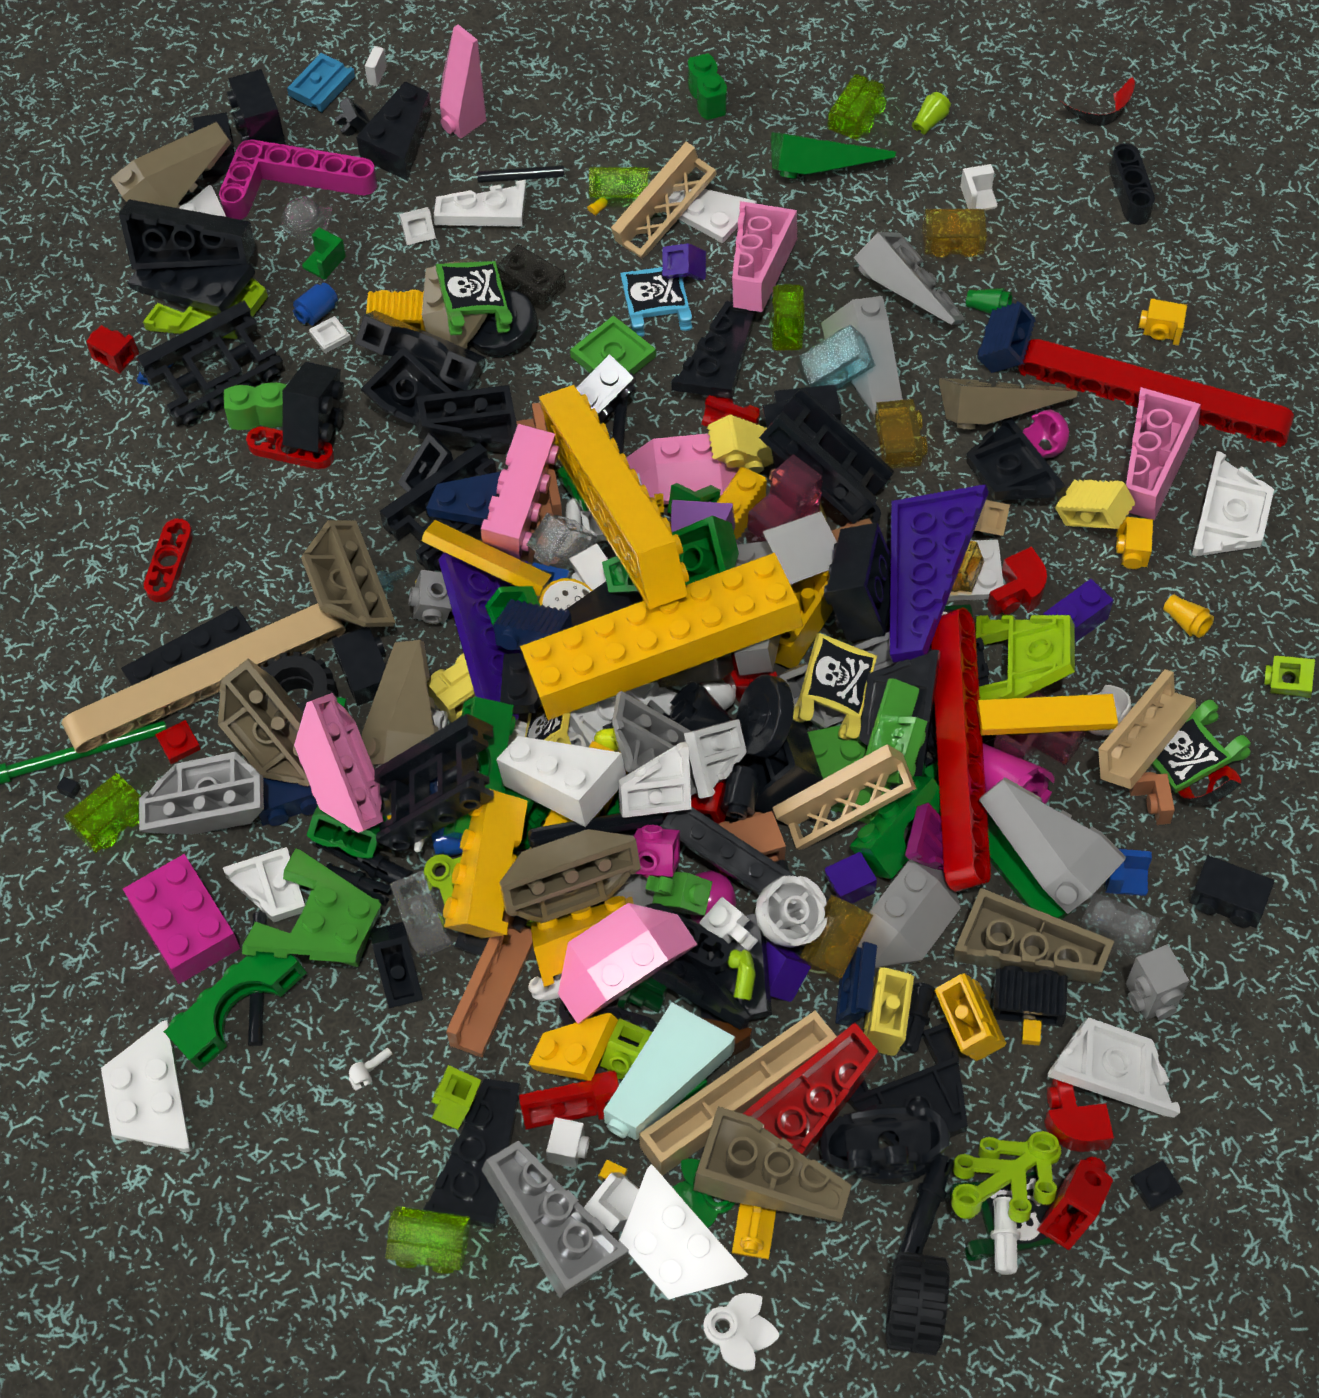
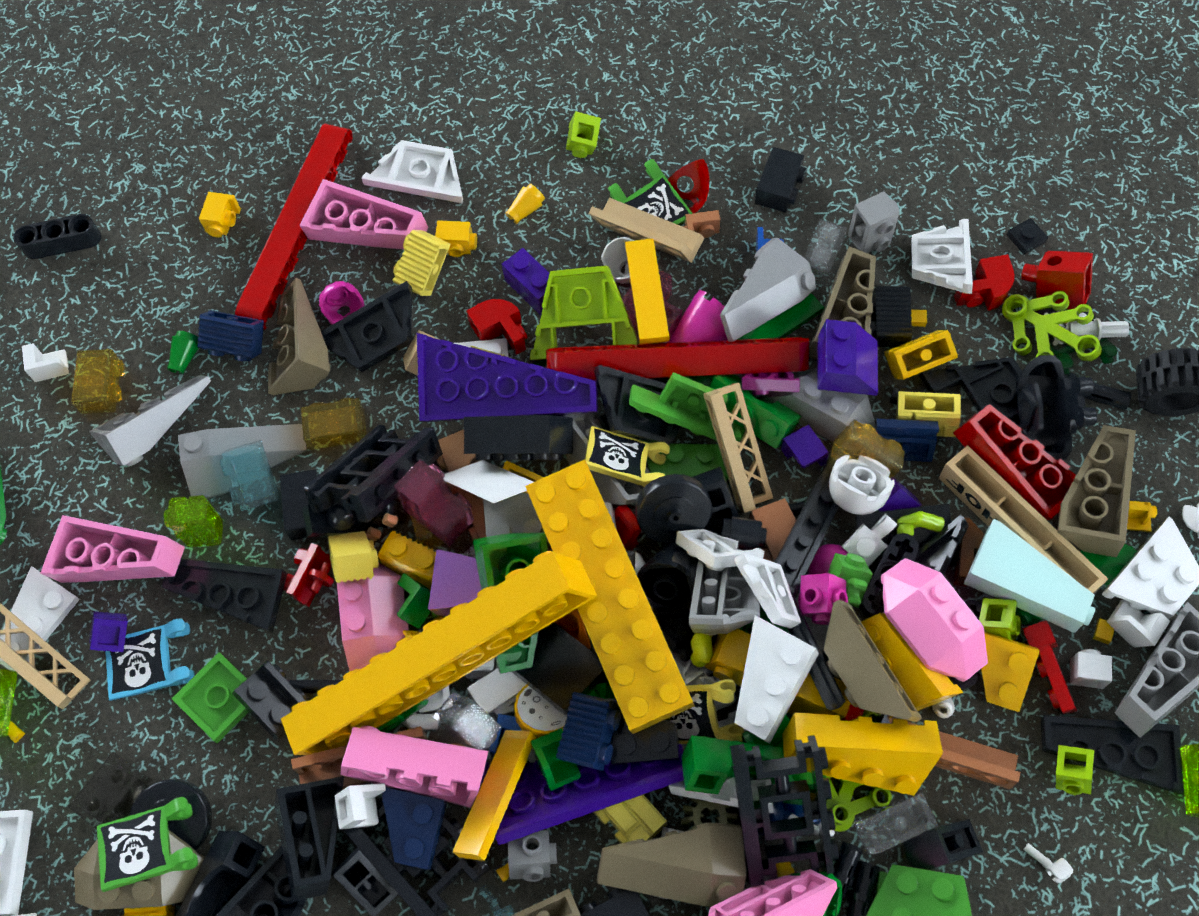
camera: 90 degrees left, 5 degrees up
(487, 453) = (357, 805): none -> white panel
(949, 914) = (847, 359): none -> dark purple slope

